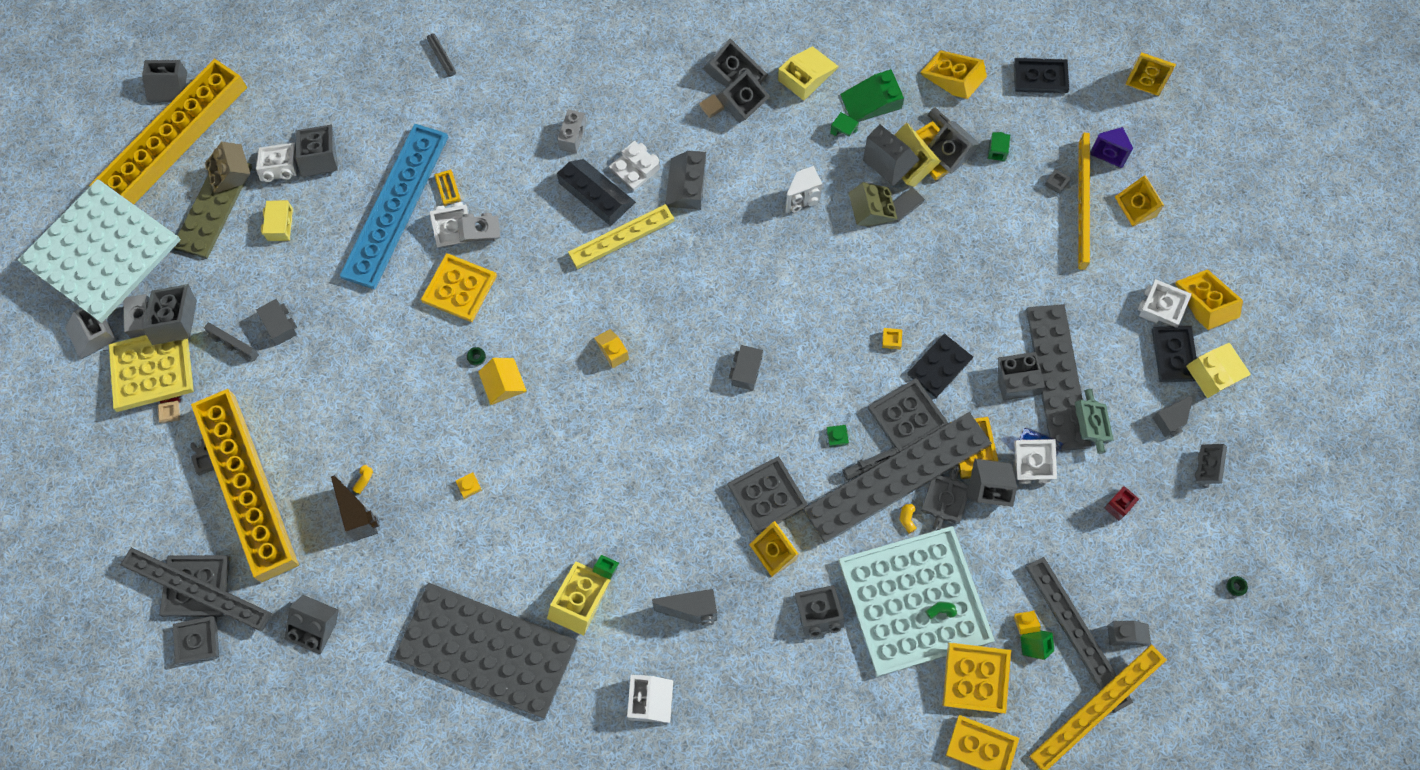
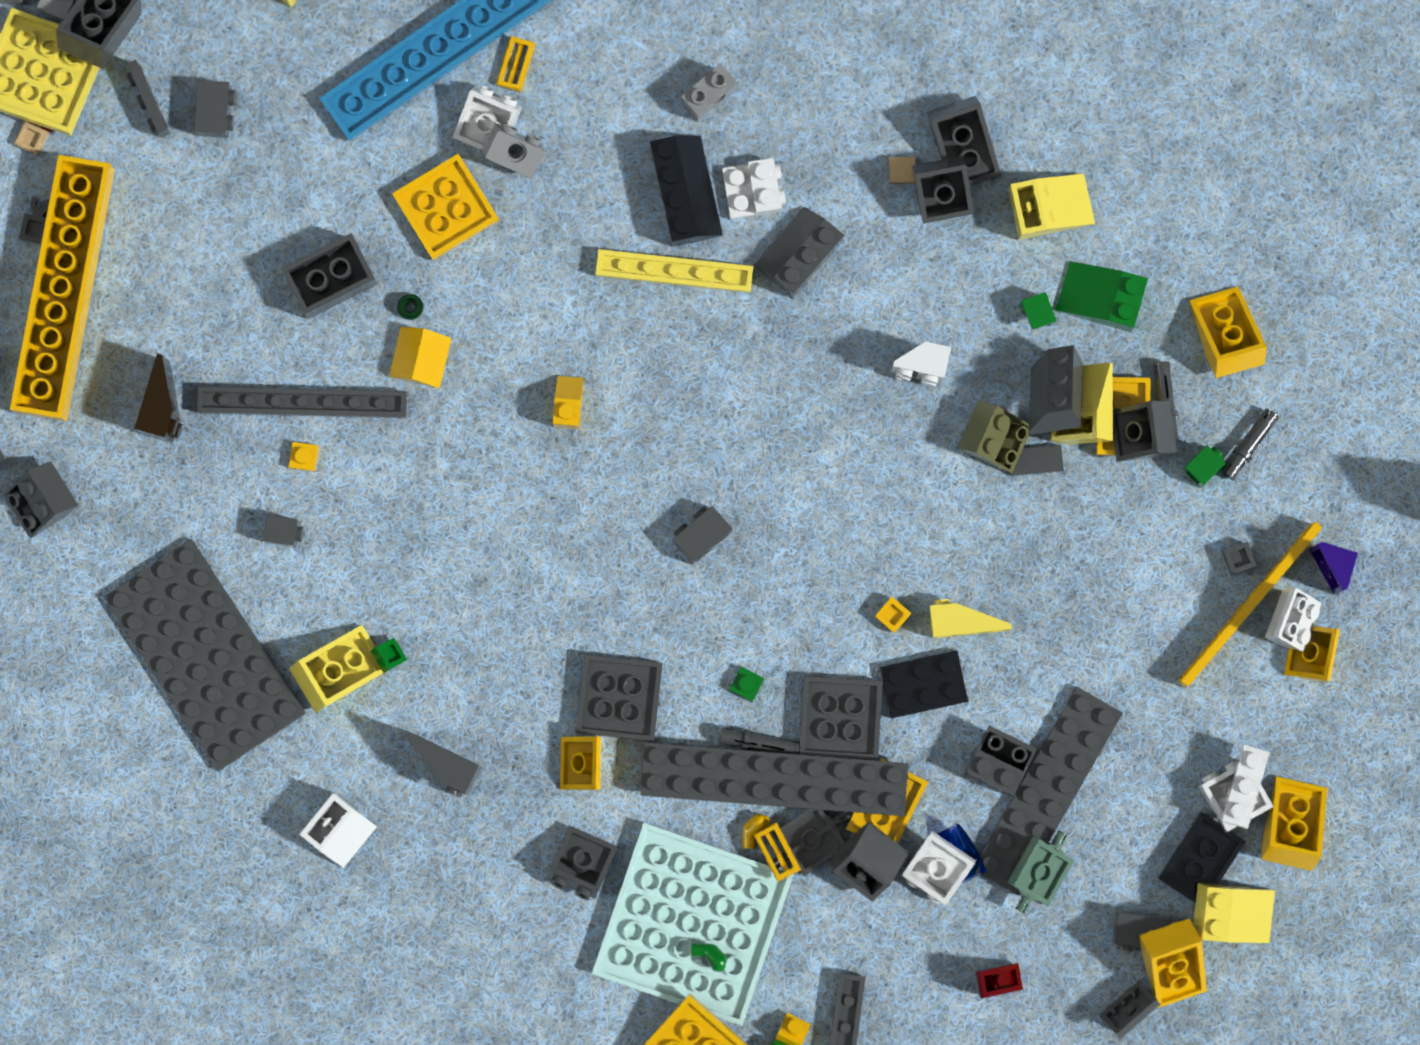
camera: 35 degrees right, 15 degrees up
(364, 479) = (193, 372): yellow arm -> none
(413, 368) = (329, 276): none -> dark grey brick
(444, 453) = (302, 402): none -> dark grey plate
(485, 537) = (282, 531): none -> dark grey brick
(930, 525) = (787, 872): none -> yellow tile
(933, 314) = (957, 620): none -> light yellow slope
(1013, 121) = (1253, 439): none -> dark grey pin
(1041, 75) = (1332, 408): black plate -> none
(1114, 189) = (1293, 619): none -> white slope
(1167, 293) = (1245, 786): none -> white plate
(1212, 415) = (1174, 962): none -> yellow slope

